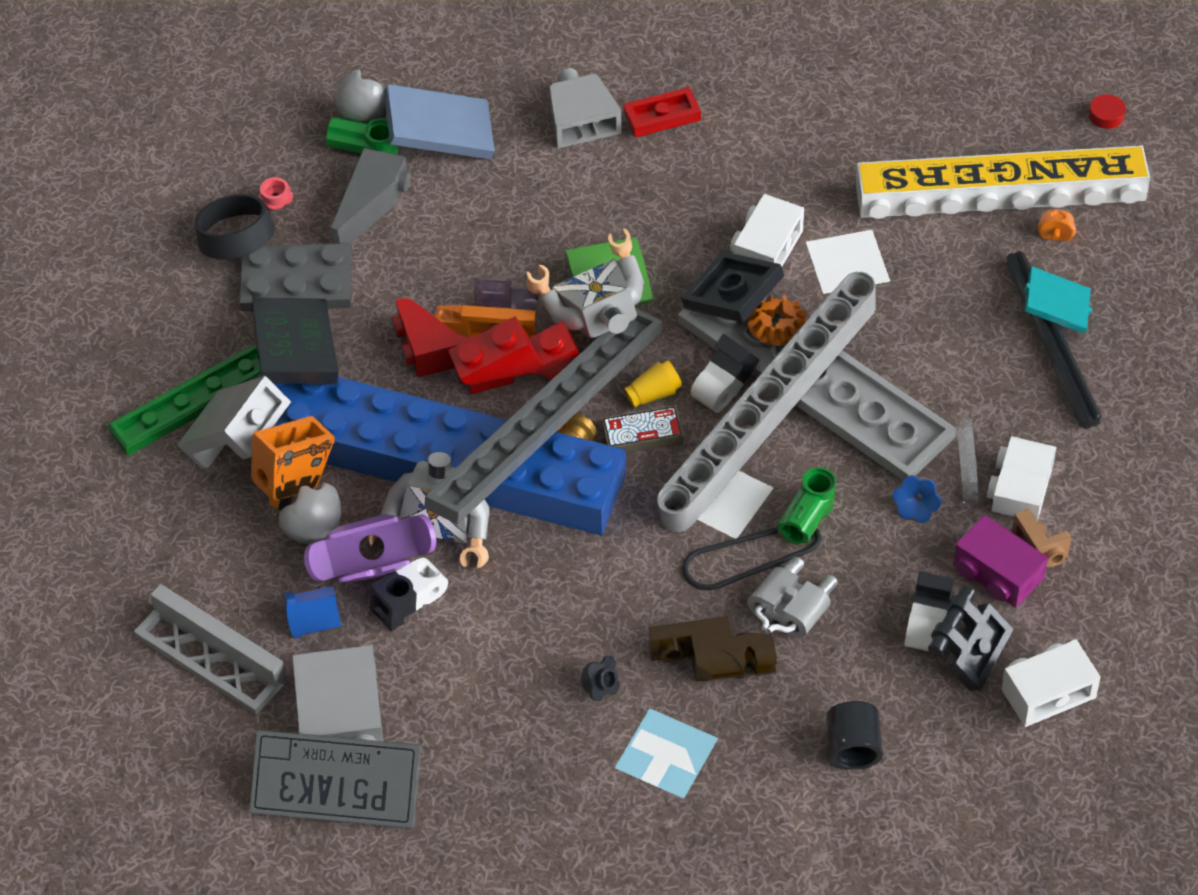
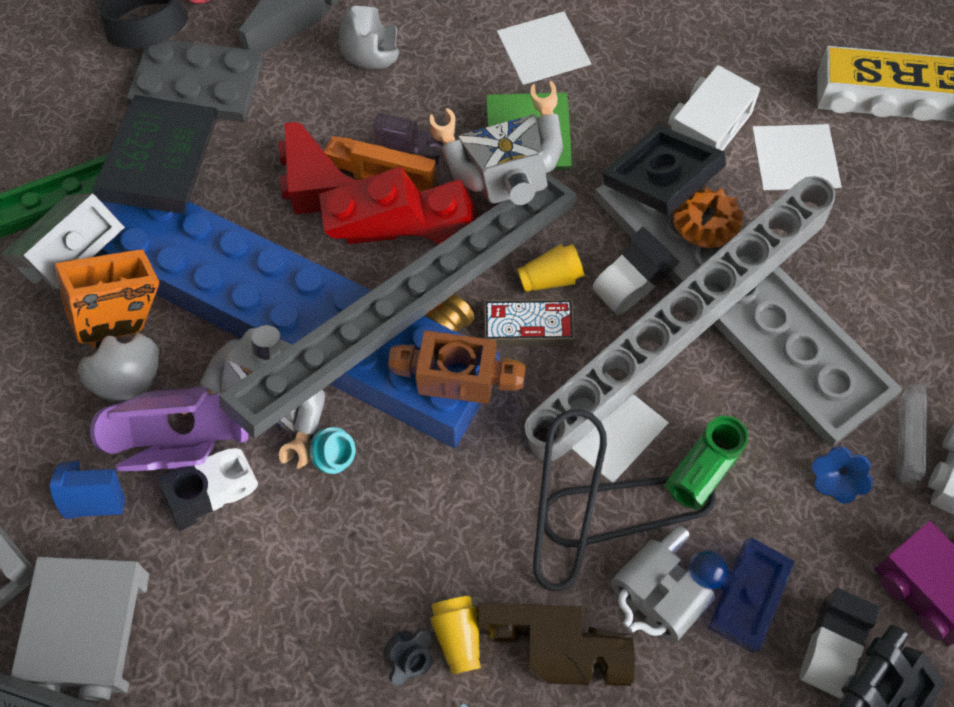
camera: 10 degrees right, 10 degrees up
(445, 219) = (366, 40): none -> light grey hair
(503, 549) = (332, 450): none -> teal plate
(606, 201) = (544, 47): none -> white sticker
(610, 458) = (452, 349): none -> dark orange piece
(635, 657) = (458, 633): none -> yellow cone
(683, 552) = (590, 503): none -> black piece
(855, 591) = (748, 593): none -> clear blue plate

